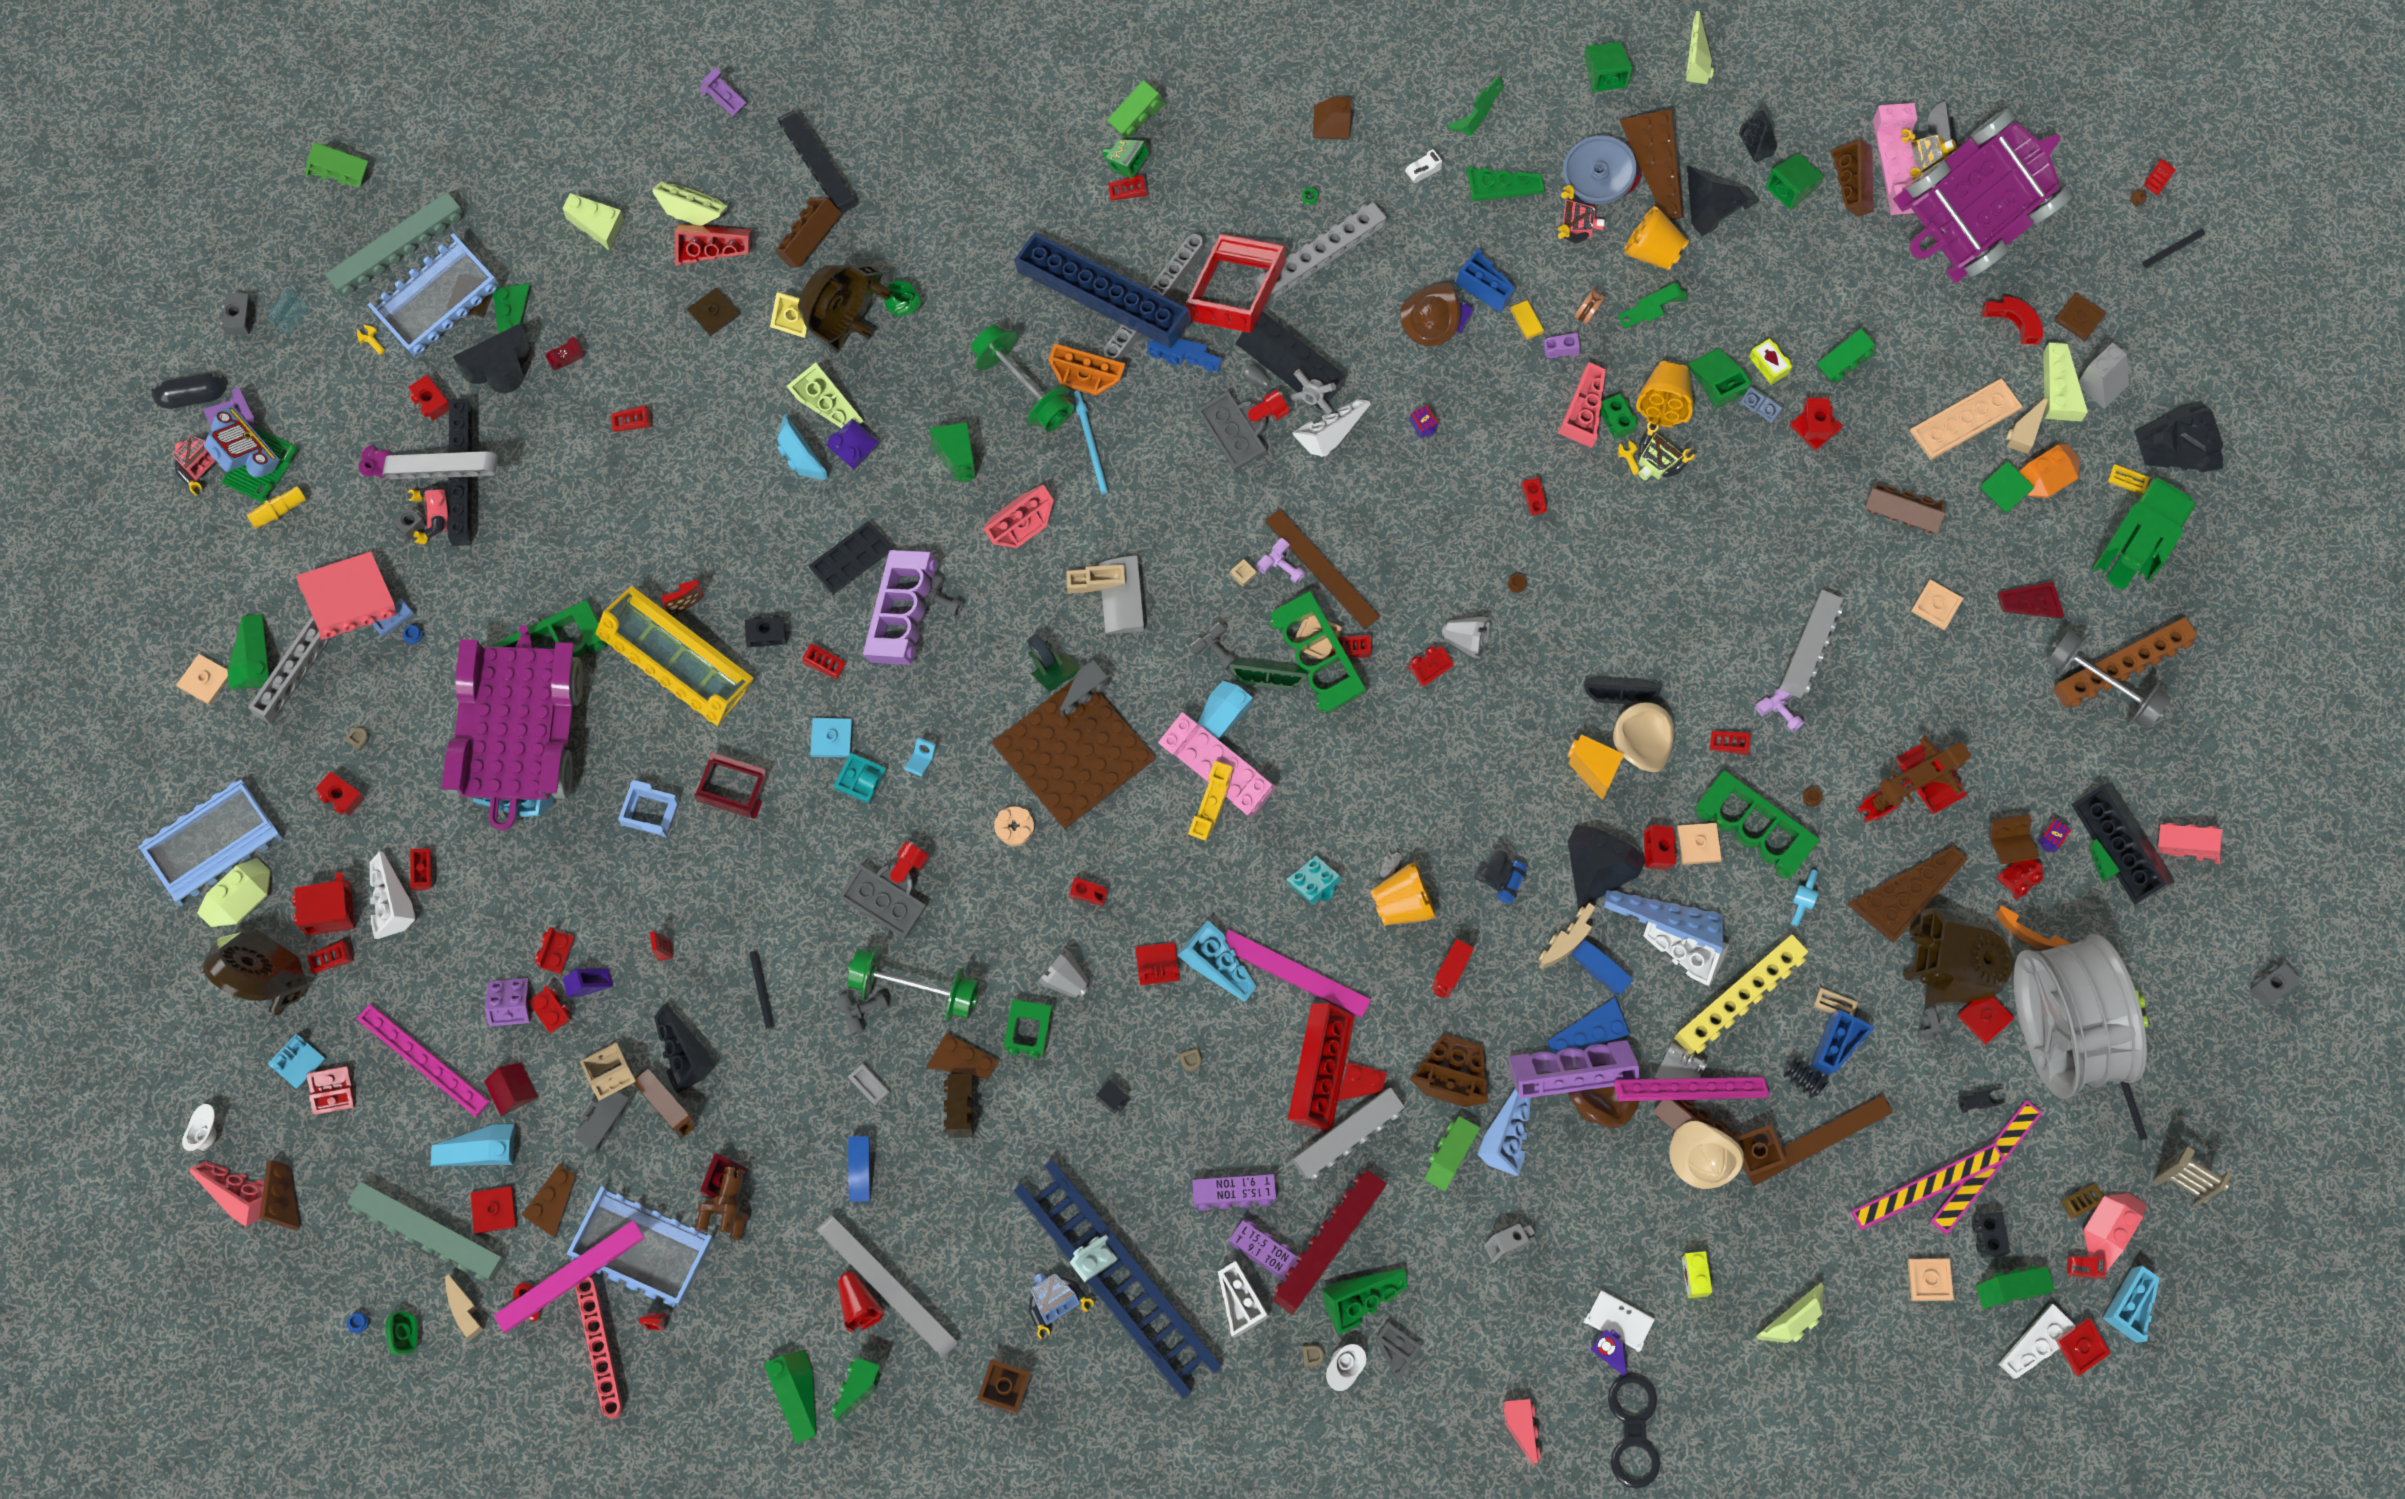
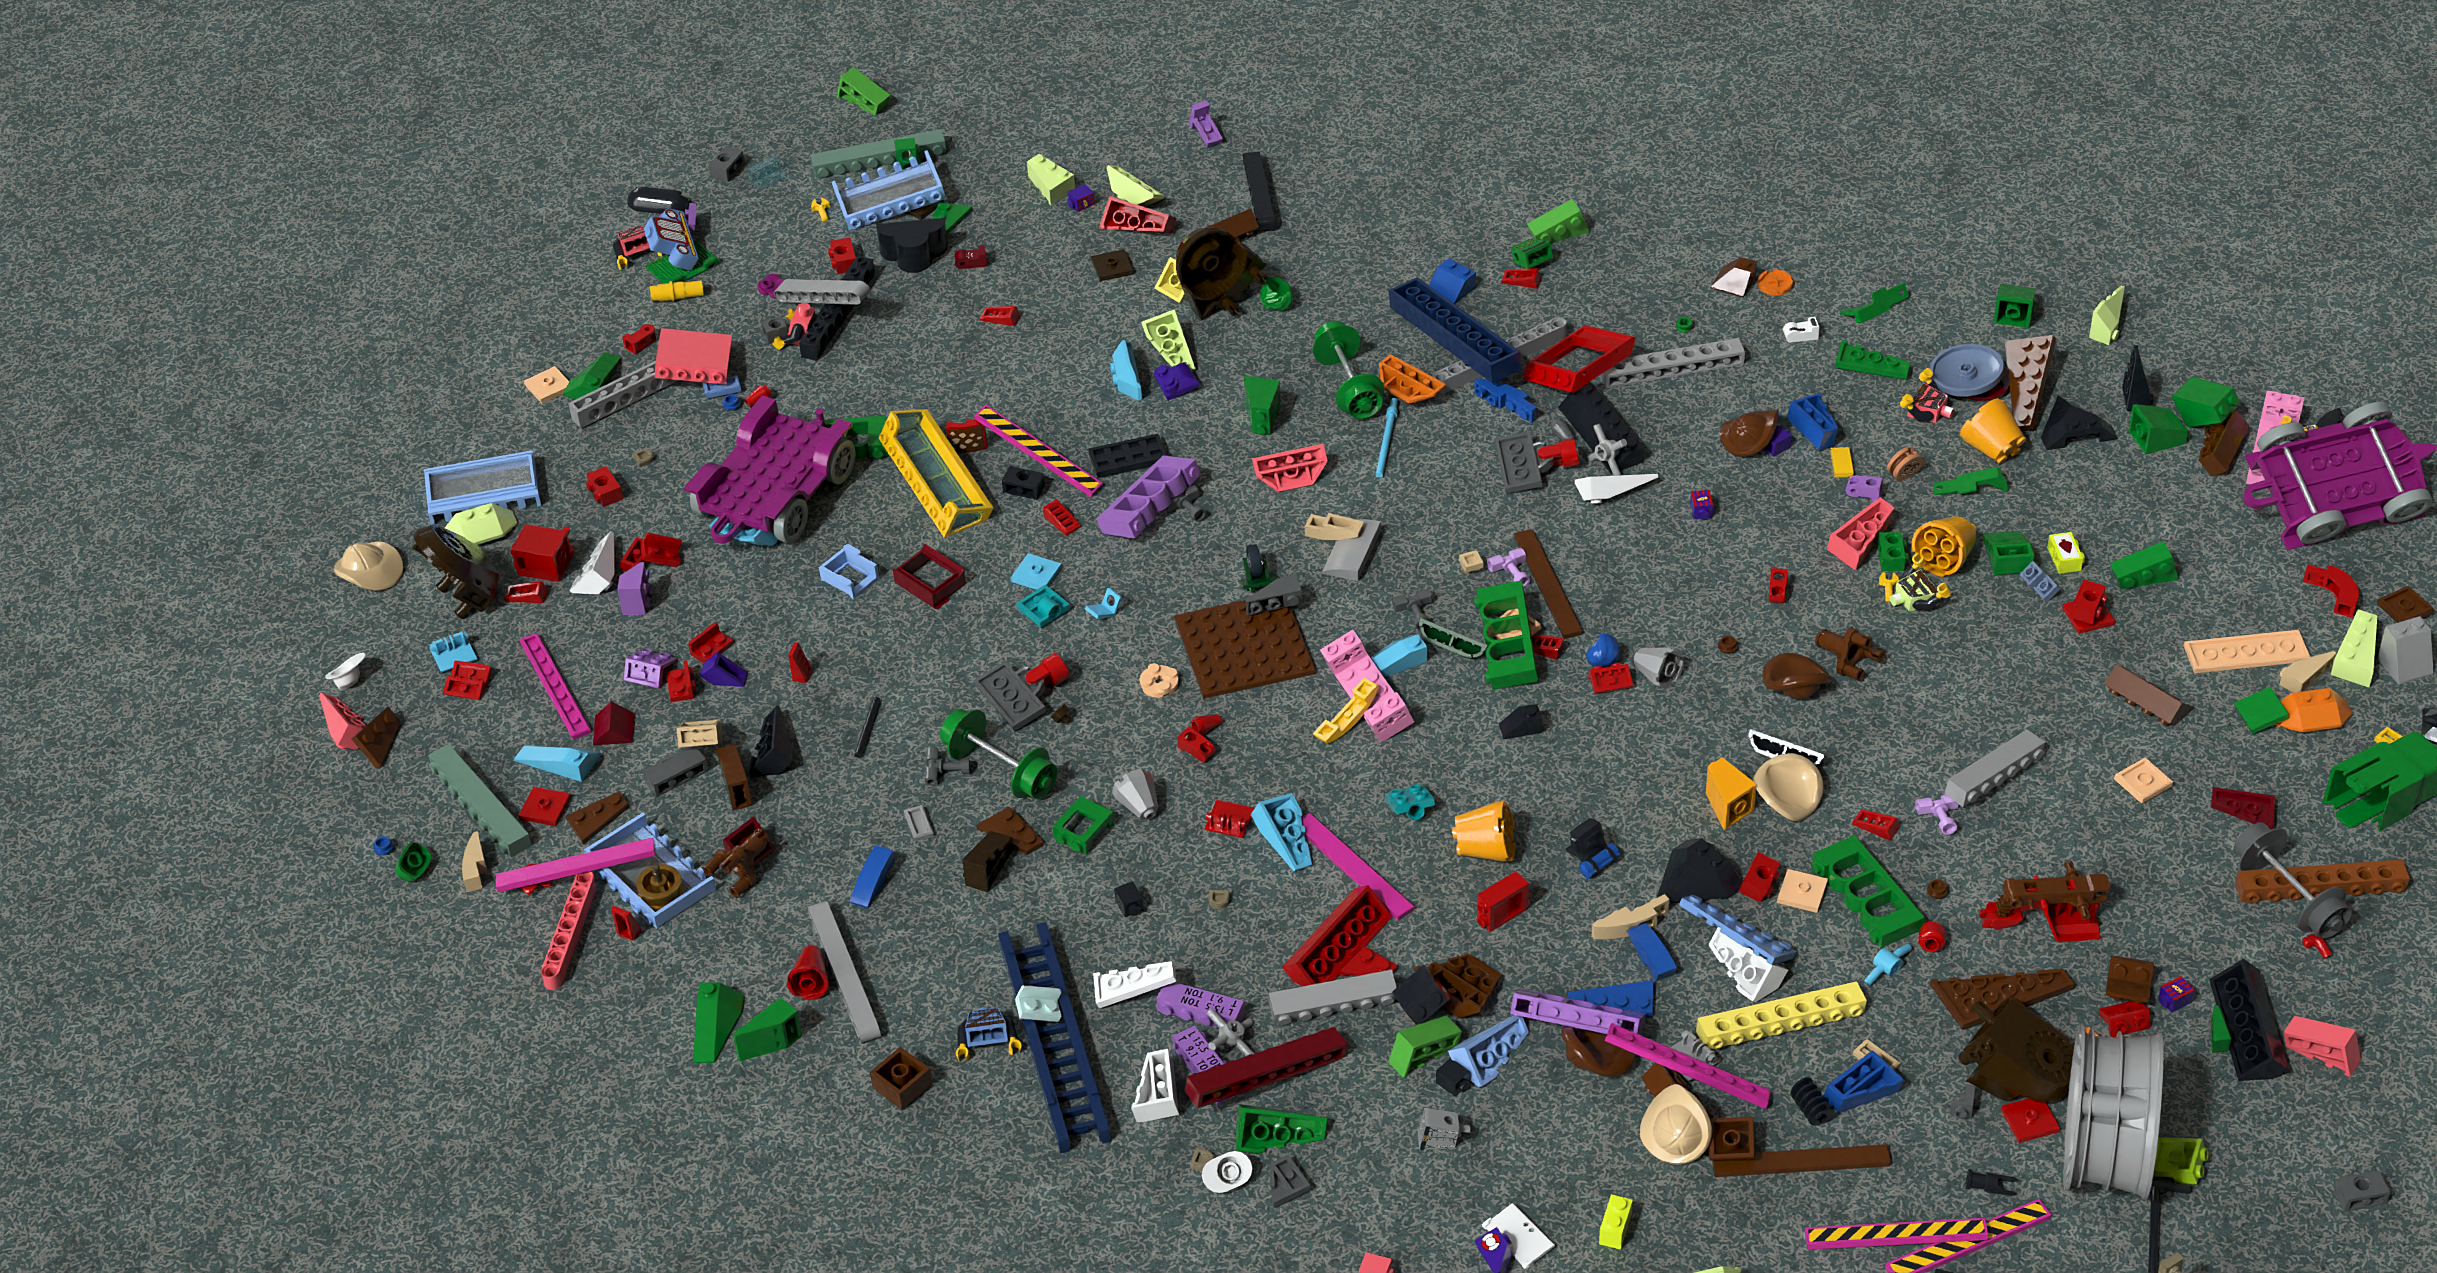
camera: 30 degrees right, 25 degrees down
(148, 988) = (370, 565): none -> tan piece
(272, 585) = (640, 339): none -> red leg
(429, 239) = (905, 150): none -> green brick
(437, 616) = (756, 394): none -> red cone
(444, 856) = (661, 549): none -> red bracket
(447, 919) = (634, 590): none -> medium lavender slope
(639, 234) = (1081, 198): none -> dark purple brick
(665, 1267) = (659, 885): none -> pearl gold wheel
(765, 592) = (1038, 450): none -> tile
(941, 903) = (1061, 714): none -> dark brown tile
(1065, 220) = (1453, 280): none -> blue slope
(1082, 863) = (1203, 724): none -> red cone
(1154, 1198) = (1123, 985): none -> white wing
(1277, 1213) = (1230, 1033): none -> light grey bar
(1372, 110) = (1775, 282): none -> orange tile
(1373, 749) = (1522, 722): none -> black slope
(1416, 639) = (1604, 652): none -> blue hair
(1431, 1107) = (1421, 995): none -> black slope
(1492, 1178) = (1452, 1077): none -> black brick
(1594, 600) = (1794, 675): none -> reddish brown piece
(1629, 554) = (1849, 650): none -> reddish brown wheel
(1829, 137) = (2204, 402): none -> green slope
(1831, 854) = (1932, 936): none -> red head
(2149, 733) = (2317, 942): none -> red arm

